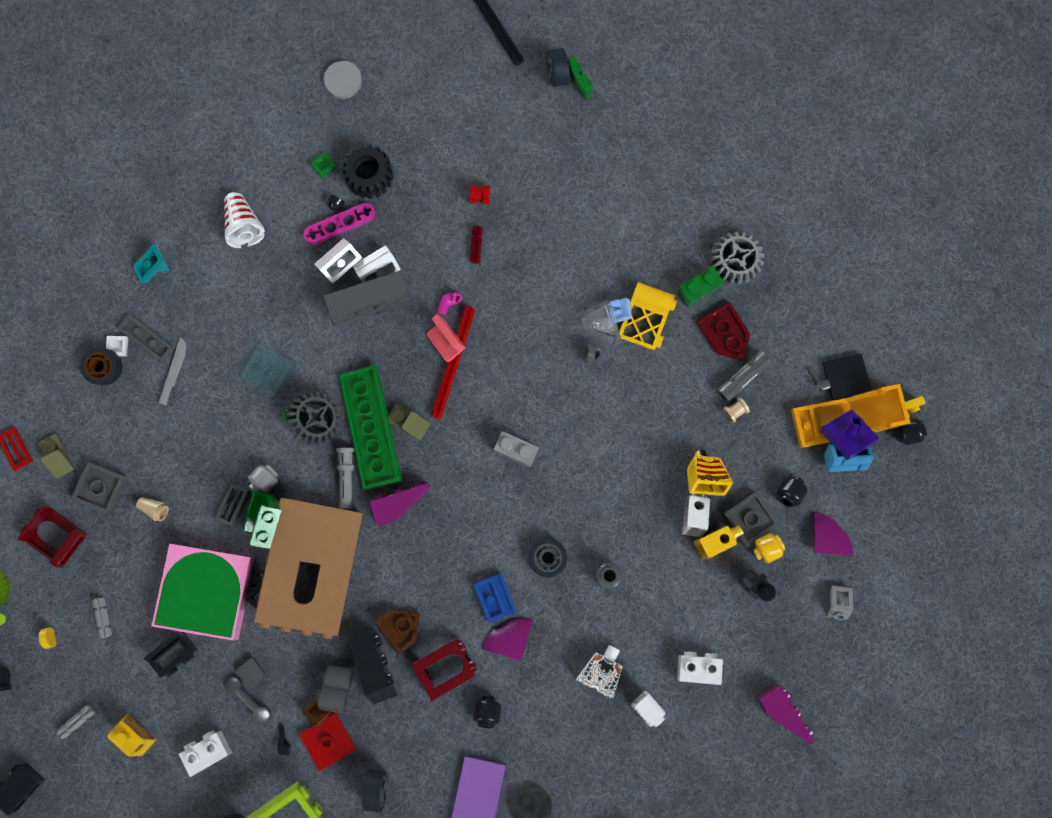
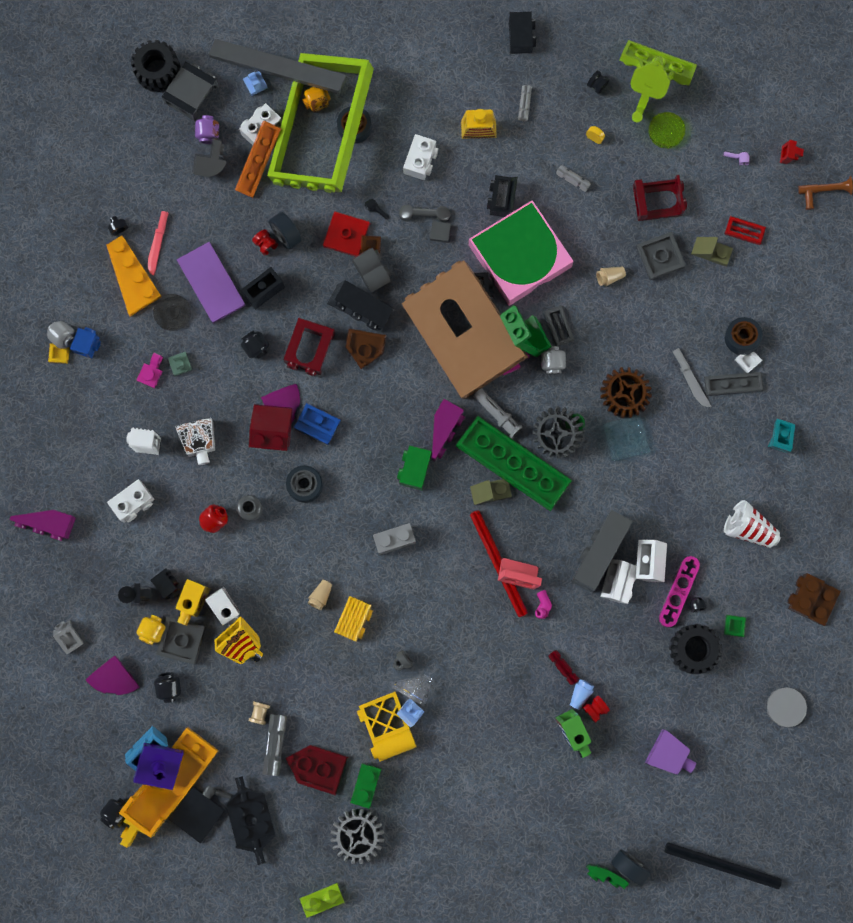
camera: 140 degrees right, 0 degrees up
(230, 411) = (629, 399): none -> reddish brown gear
(248, 134) = (813, 599): none -> reddish brown plate
(400, 797) = (264, 241): none -> red wheel
(437, 755) = (263, 288): none -> black brick
(449, 491) = (414, 468): none -> green brick
(457, 118) = (670, 754): none -> medium lavender torso
(480, 214) = (581, 694): none -> light blue cone
(511, 188) = (571, 727): none -> bright green torso
(535, 627) = (270, 427): none -> dark red slope
(562, 753) = (180, 363): none -> sand green tile
(594, 767) = (150, 373): none -> dark pink plate
(602, 416) = (353, 619): none -> yellow brick
(611, 458) = (320, 595): none -> tan cone
(645, 593) = (213, 518): none -> red head
(727, 573) = (166, 585): none -> black brick
(802, 237) = (322, 900): none -> lime tile
(814, 322) = (249, 837): none -> black plate

